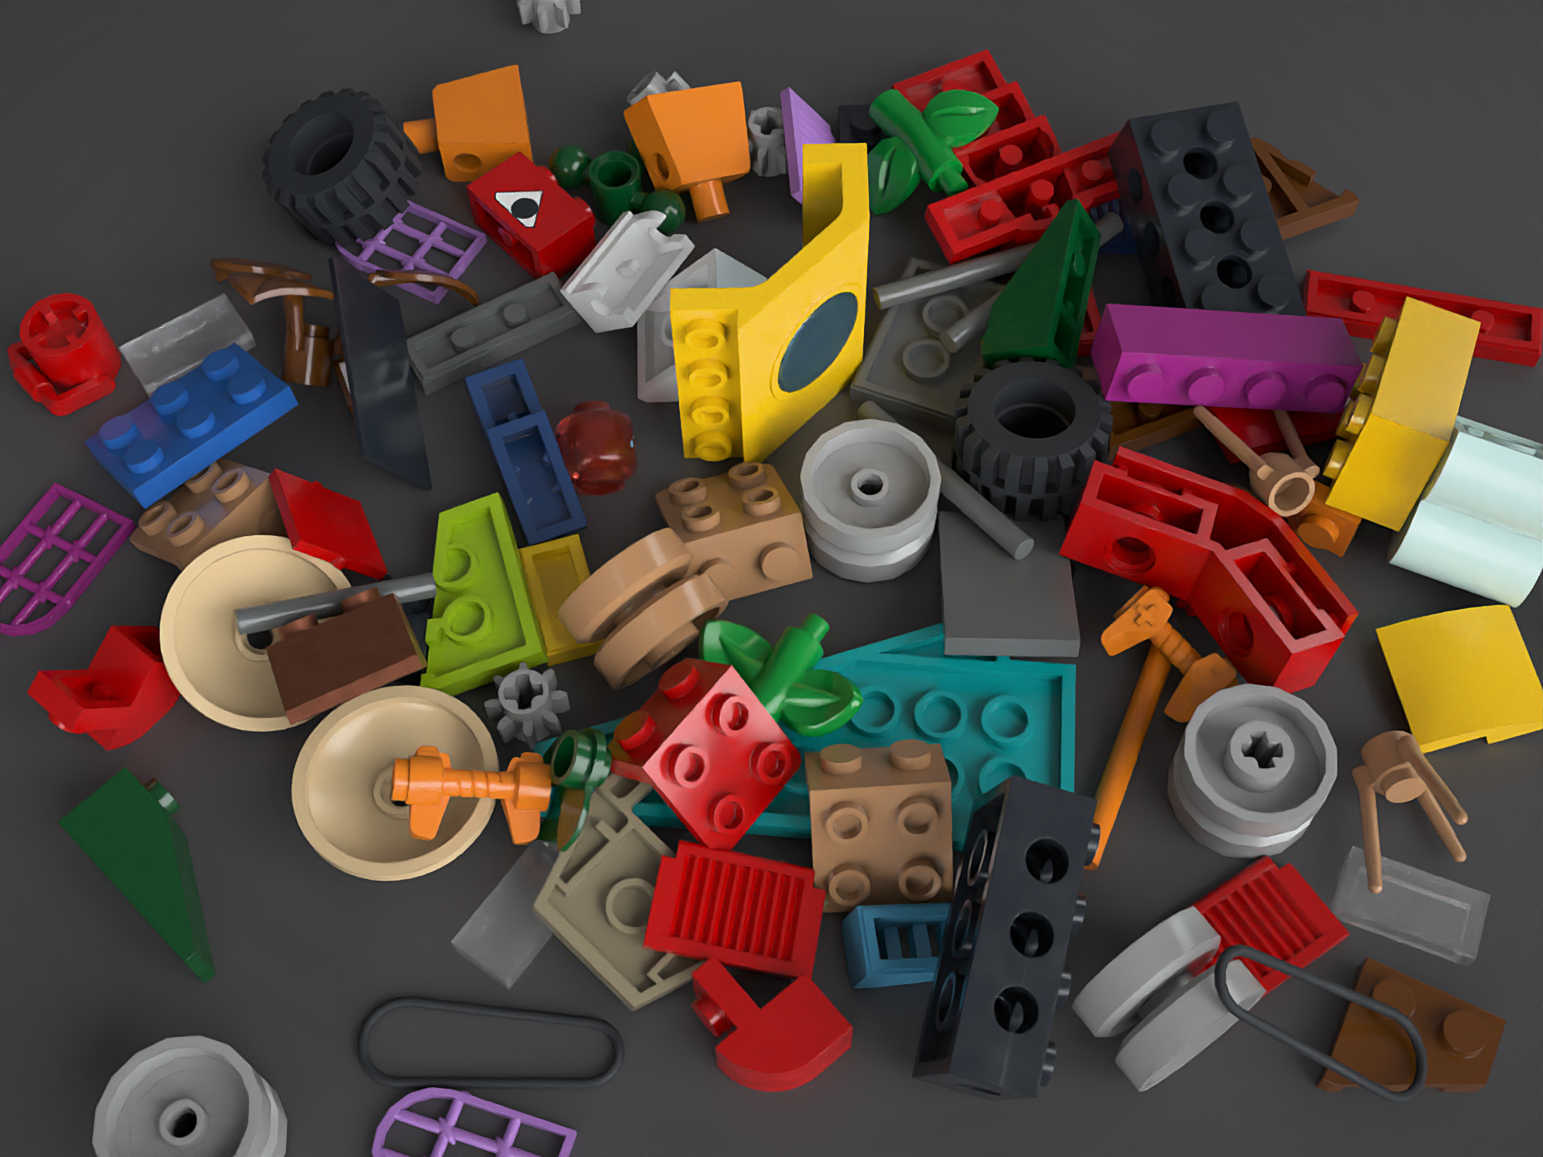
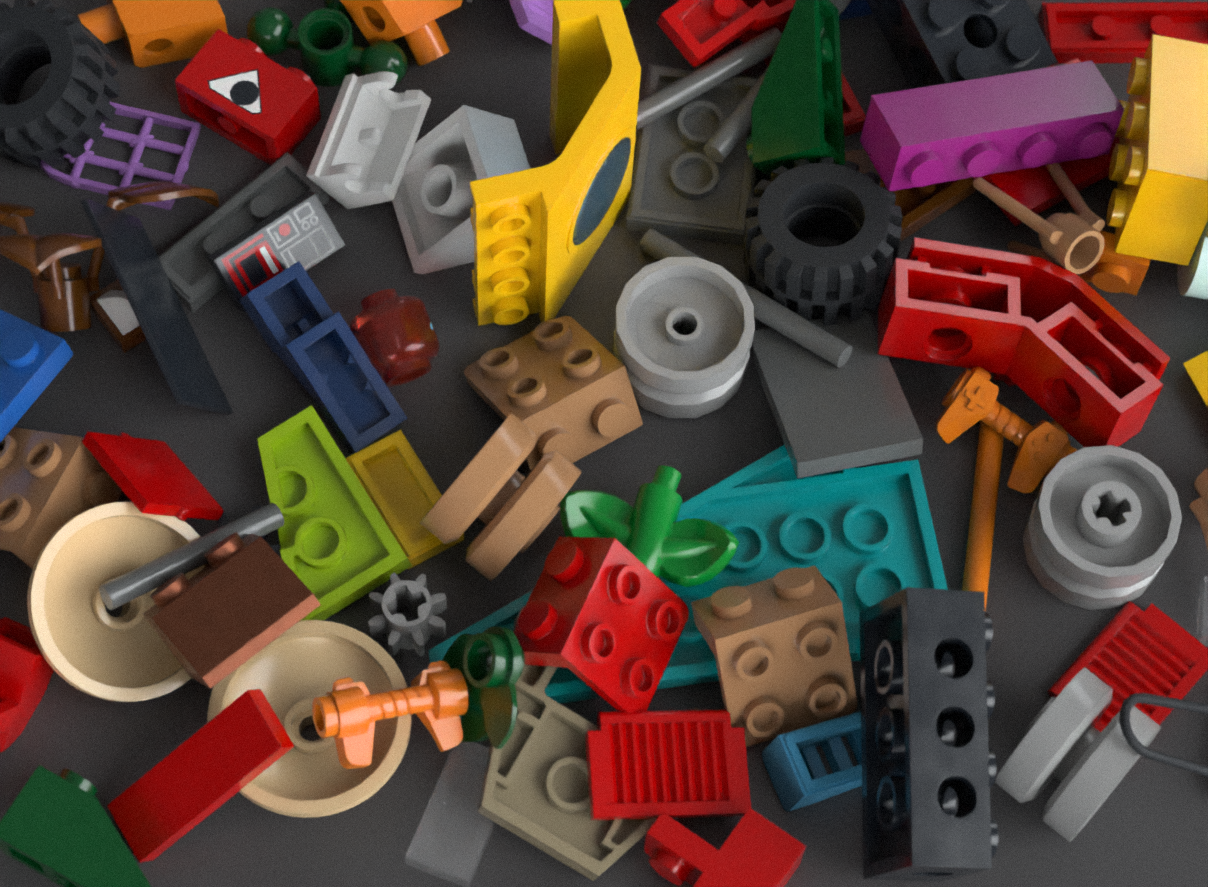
camera: 20 degrees left, 5 degrees up
(272, 811) = (200, 775): none -> red tile
(538, 338) = (290, 235): none -> tile

